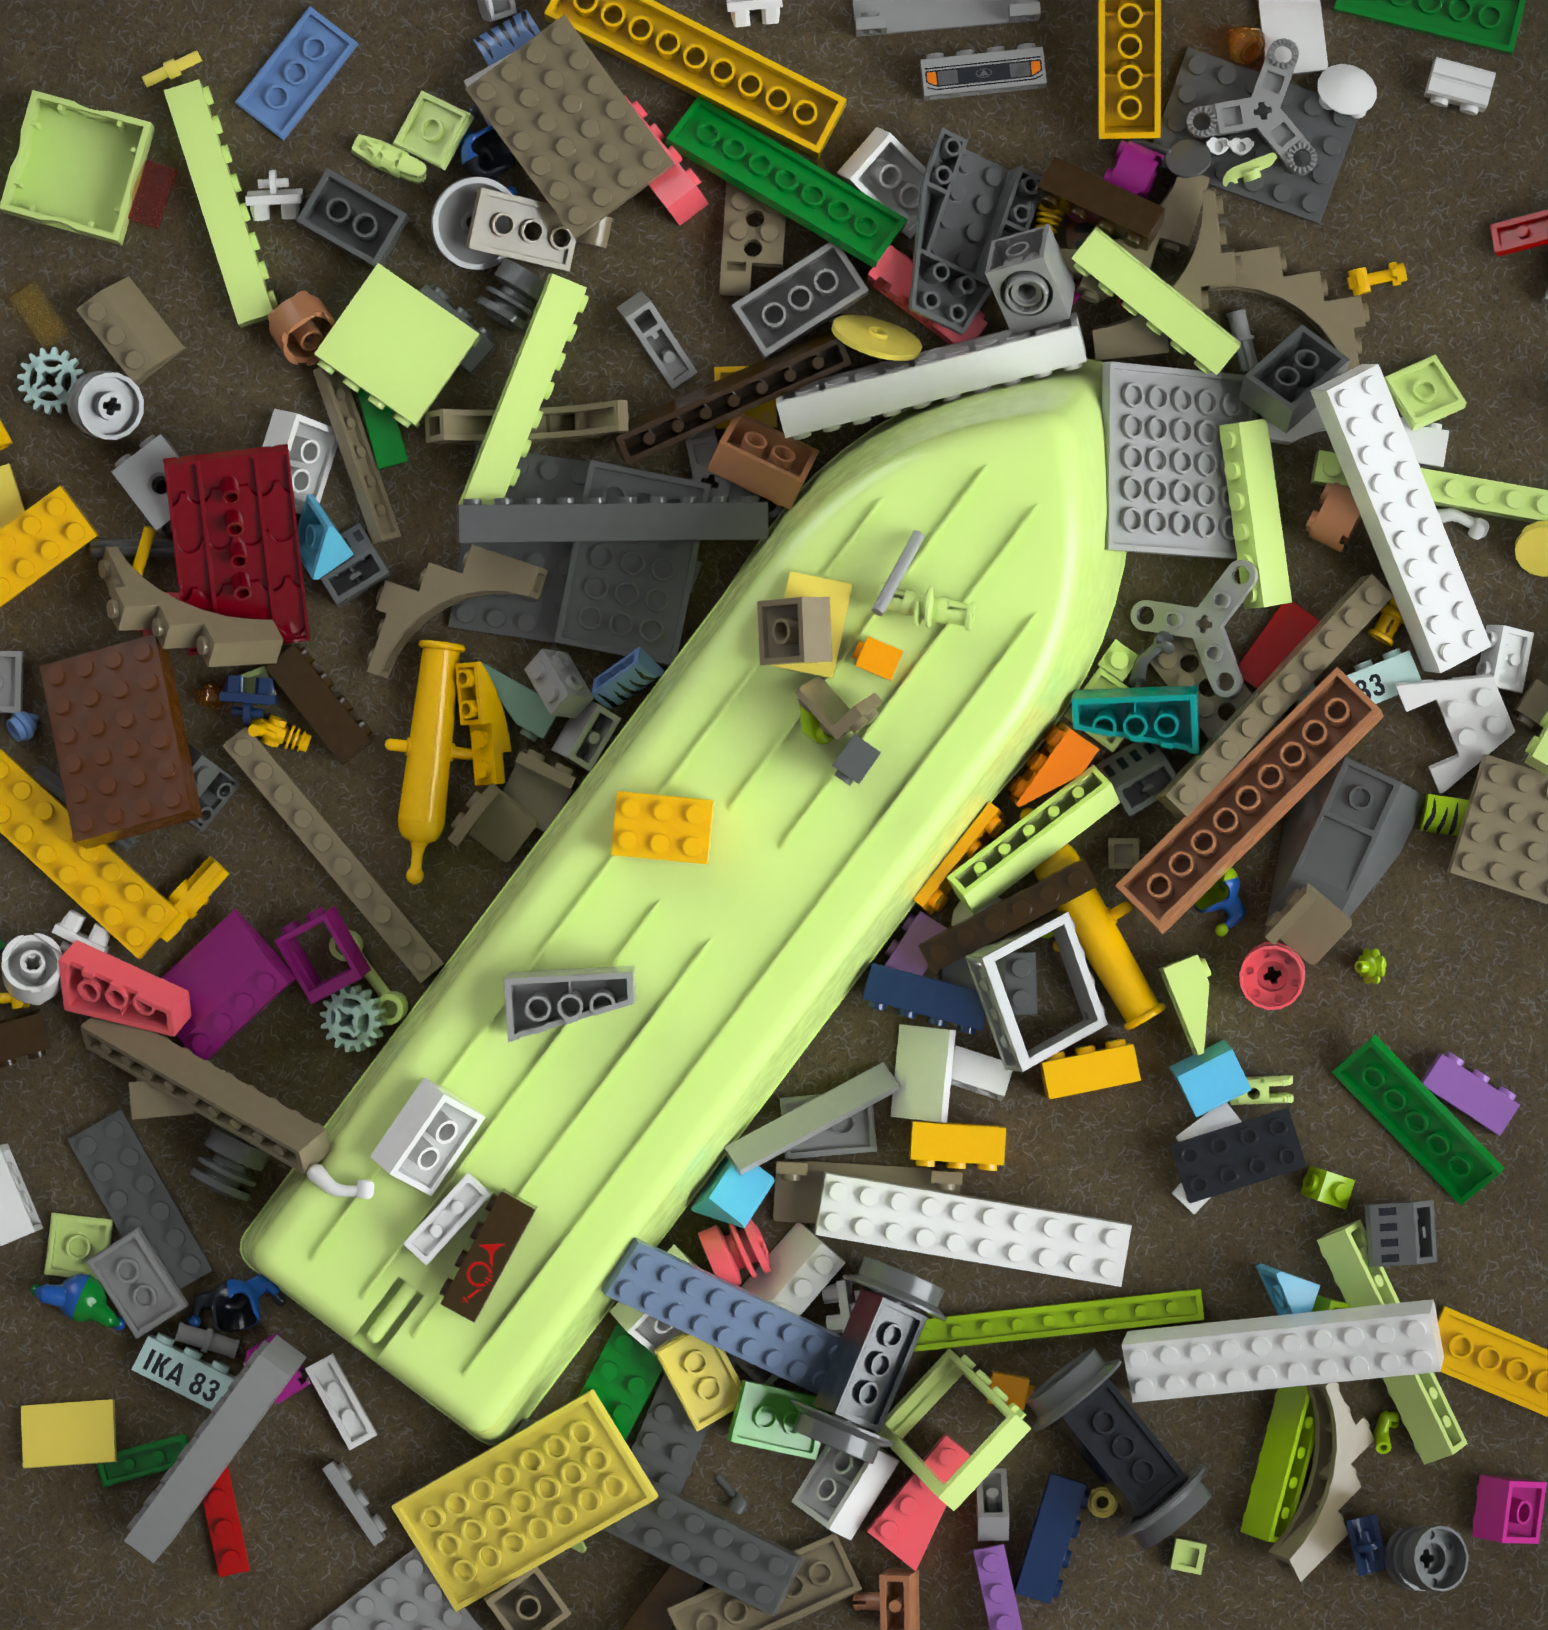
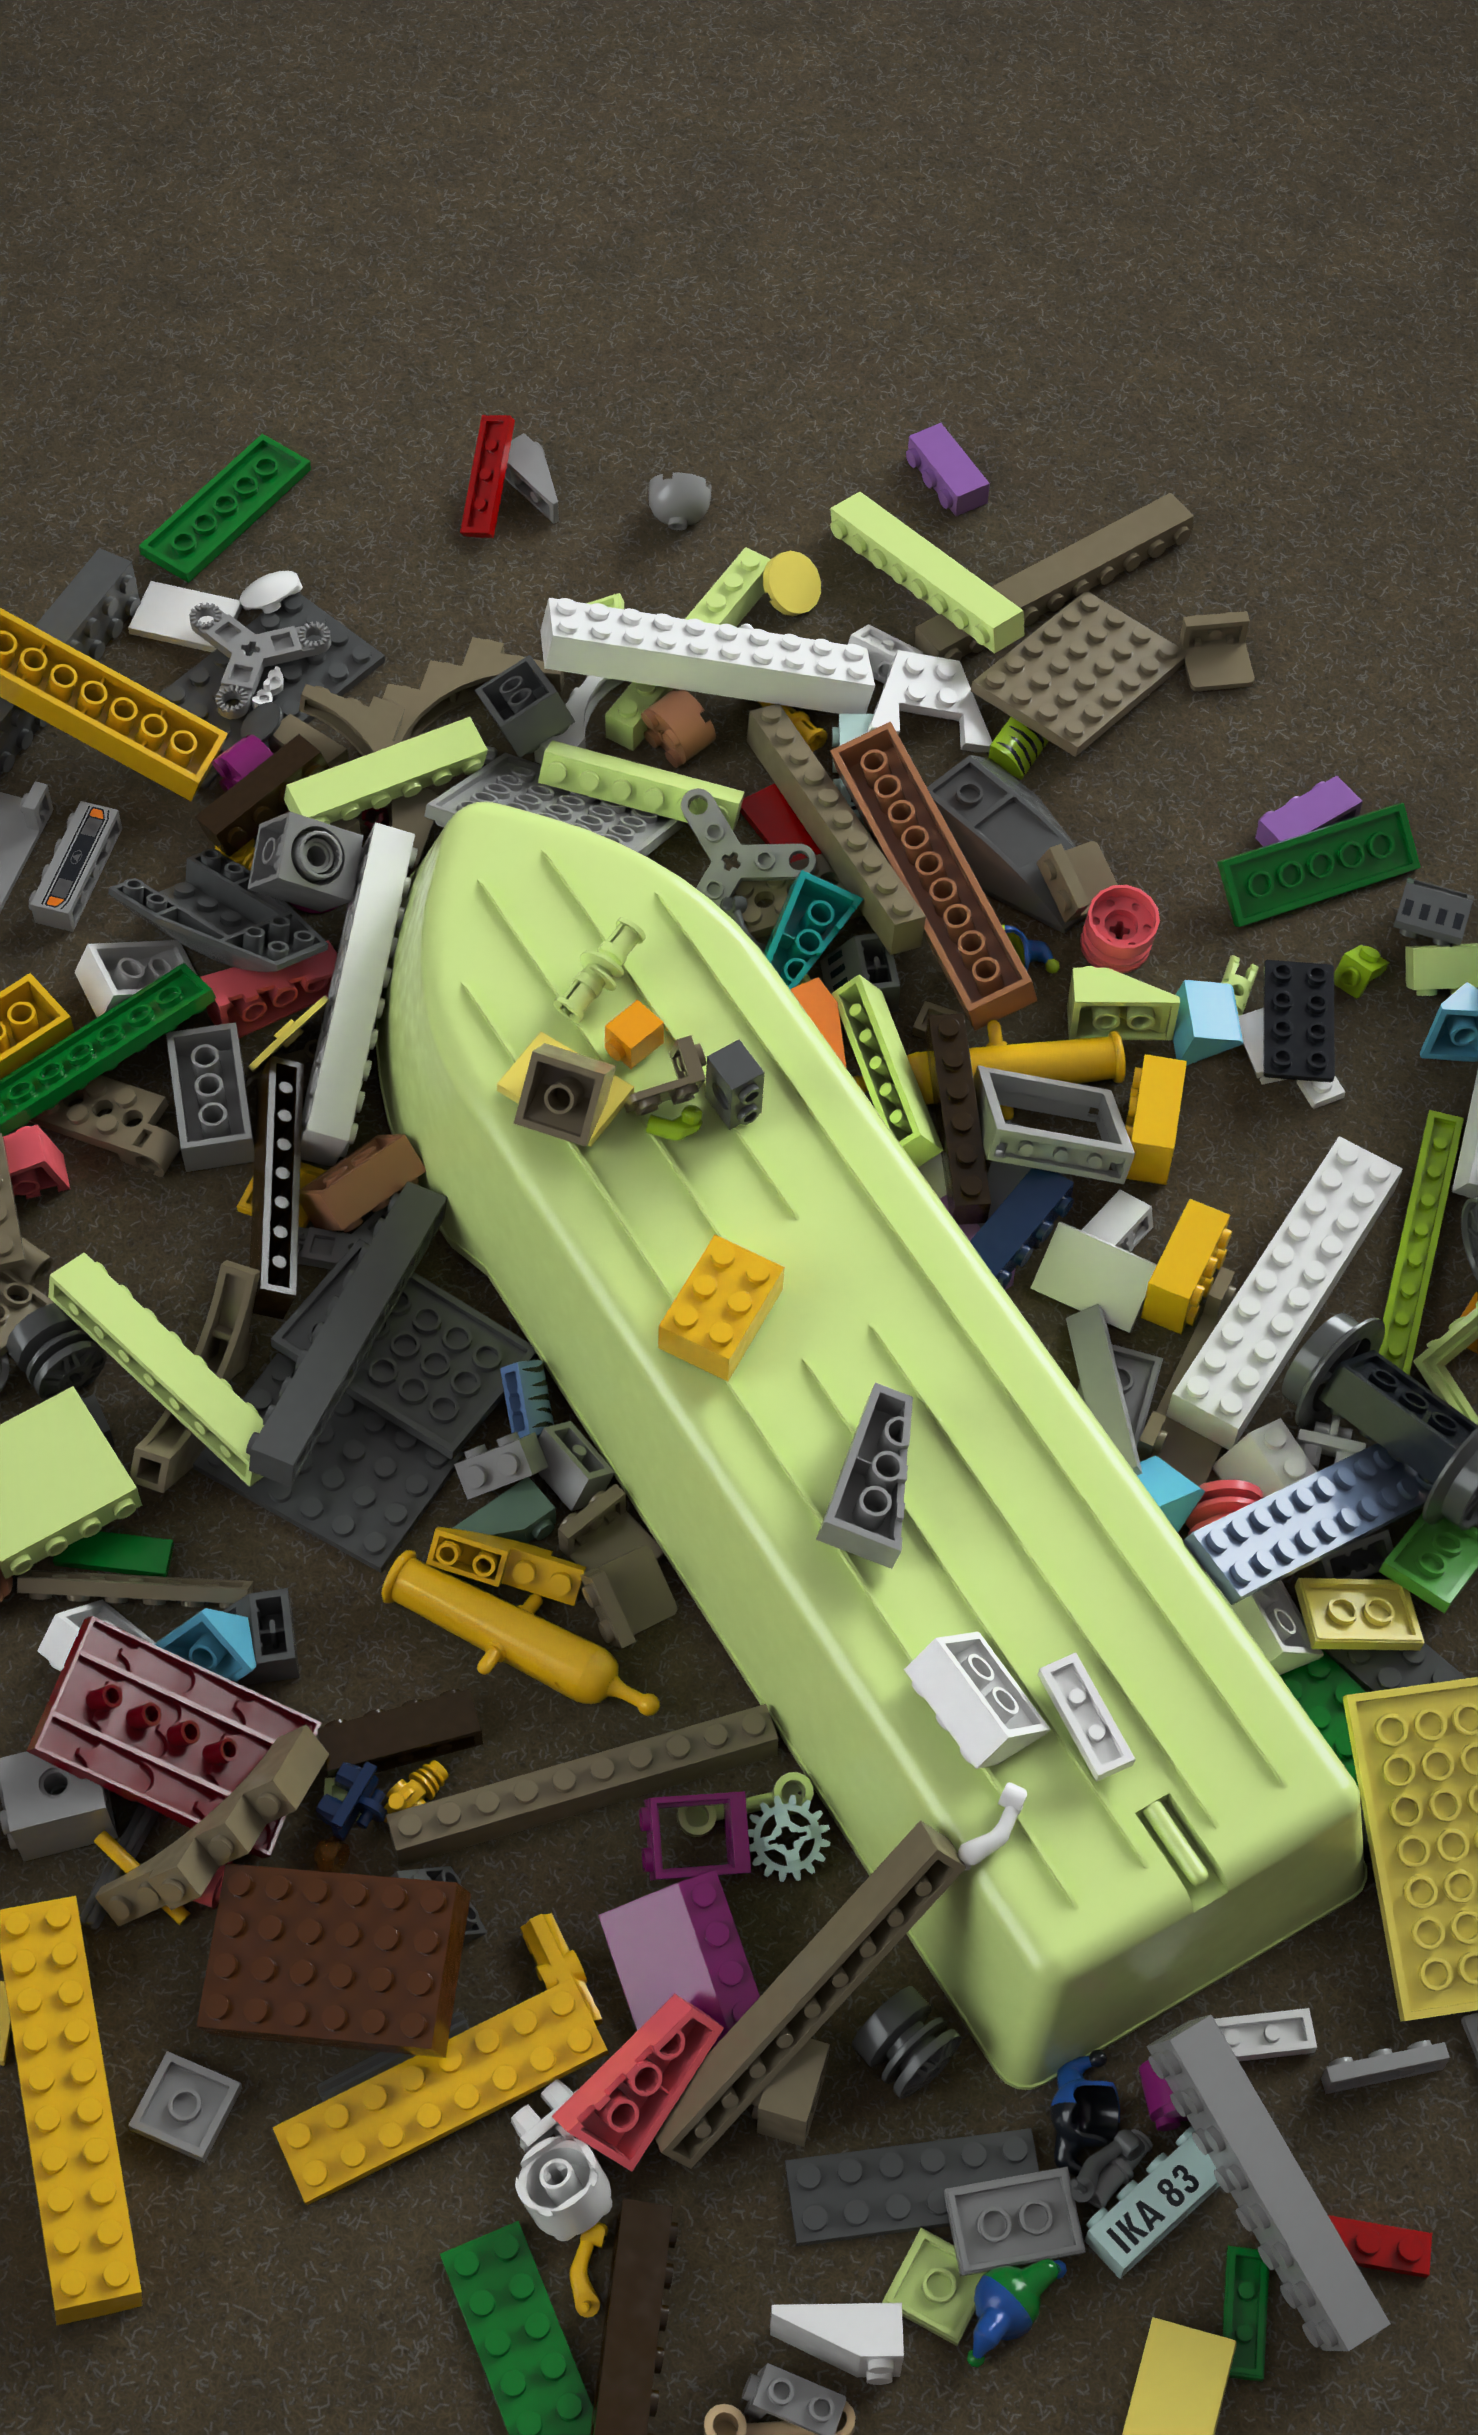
camera: 70 degrees left, 30 degrees down
(22, 725) = (258, 2091): medium blue plate -> none
(179, 1323) = (1085, 2185): none -> dark grey piece
(440, 588) = (340, 1494): dark tan arch -> none
(488, 1254) = (1148, 1686): dark brown brick -> none
(656, 339) = (167, 1245): light grey slope -> none
(898, 573) = (551, 979): light grey bar -> none
(1245, 44) = (177, 652): clear orange cone -> none
(1249, 170) = (299, 678): yellowish green piece -> none
(1360, 281) = (458, 642): yellow bar -> none
(1371, 966) = (1143, 855): lime plant -> none
(1459, 86) = (316, 509): white brick -> none

